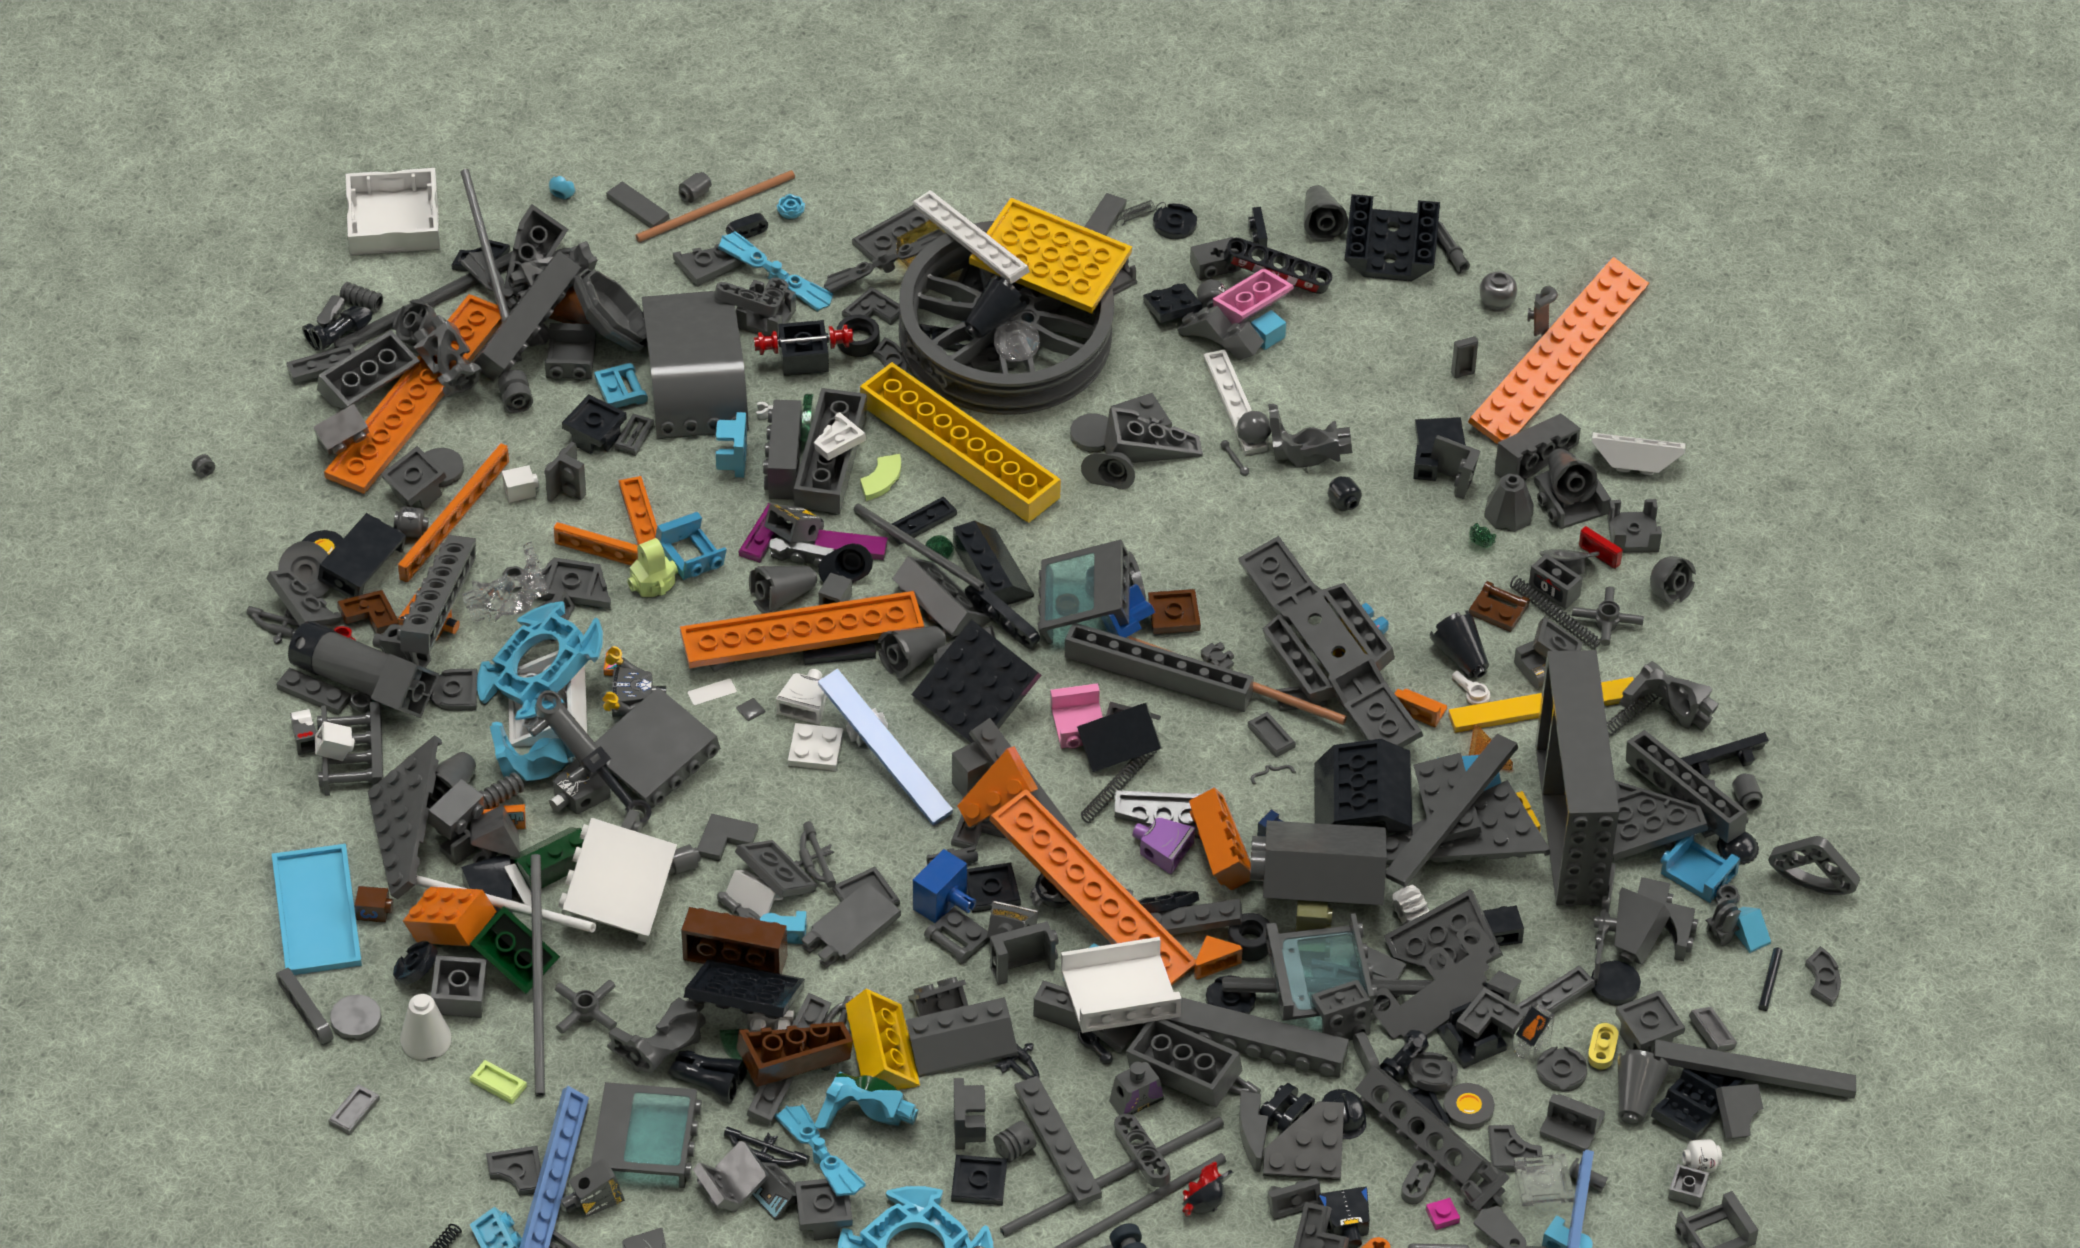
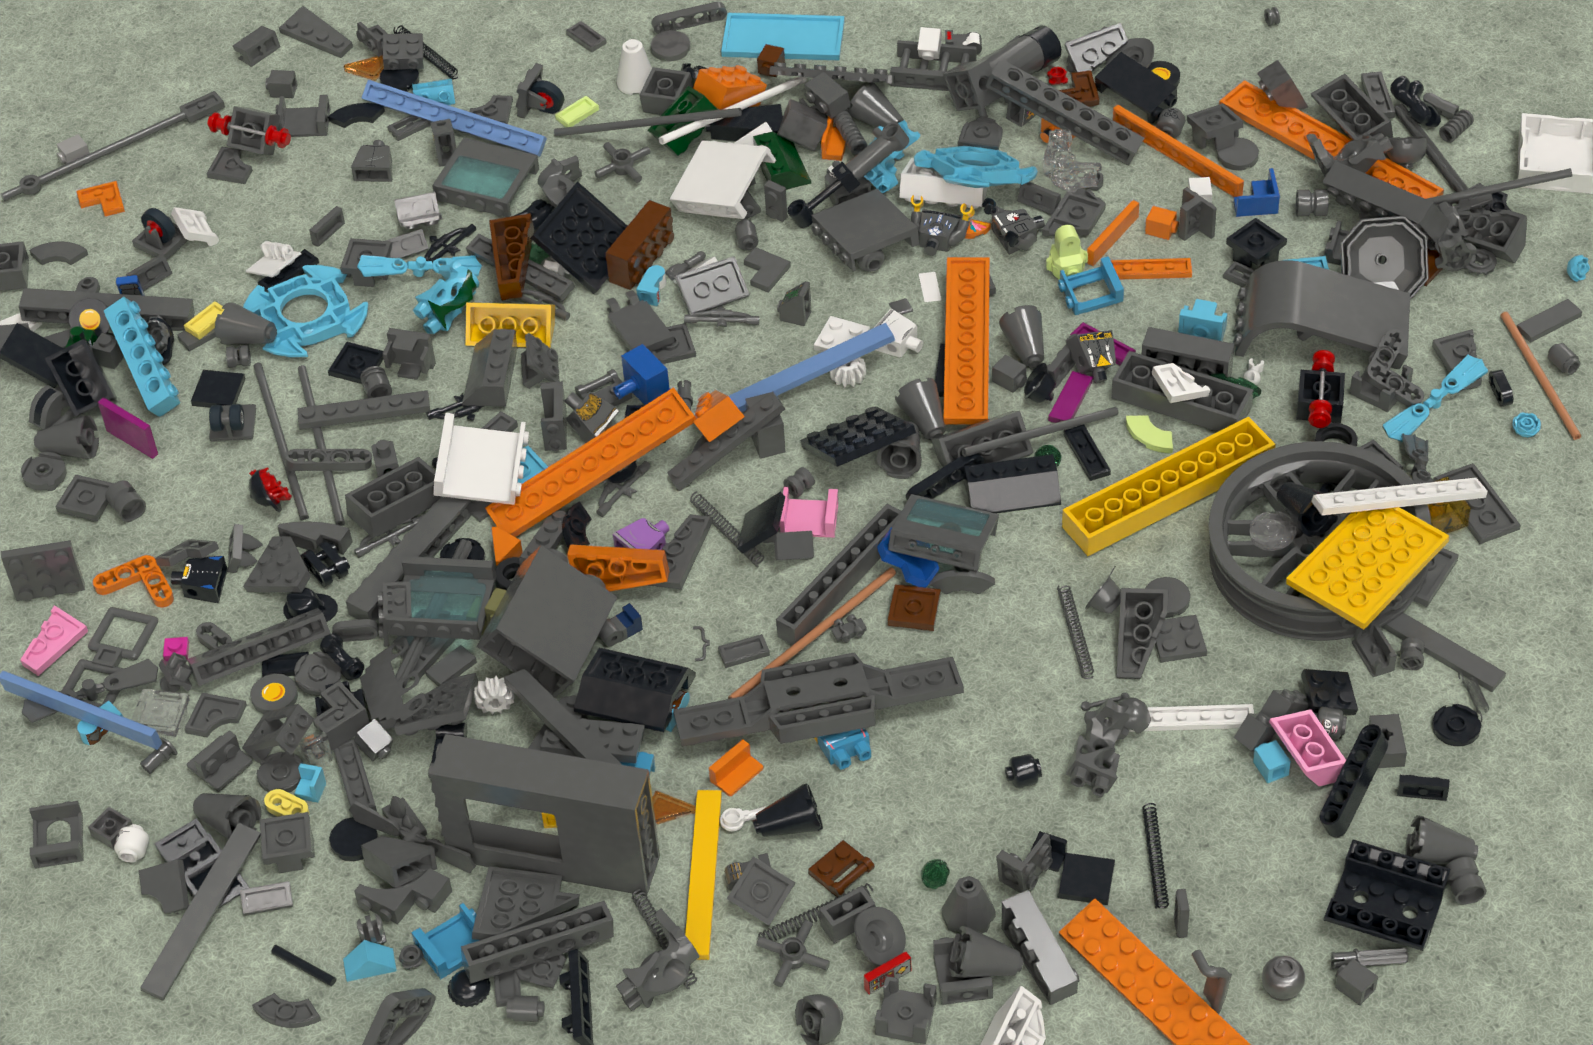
camera: 110 degrees right, 0 degrees up
(490, 1116) = (538, 93): none -> plate
(511, 430) = (1264, 198): none -> blue panel
(573, 508) = (1161, 223): none -> orange brick
(621, 622) = (1013, 228): none -> dark grey torso
(788, 782) = (796, 305): none -> dark grey slope
(1040, 733) = (799, 482): none -> dark grey wheel
(1159, 490) = (1065, 591): none -> dark grey piece
(1356, 185) = (1465, 882): none -> dark grey wheel
(1399, 394) = (1152, 869): none -> black piece
(1480, 248) = (1356, 981): none -> dark grey brick
(1552, 1044) = (273, 732): none -> dark grey panel
(1571, 1030) = (311, 783): none -> medium azure panel
(1577, 948) = (403, 814): none -> dark grey tile

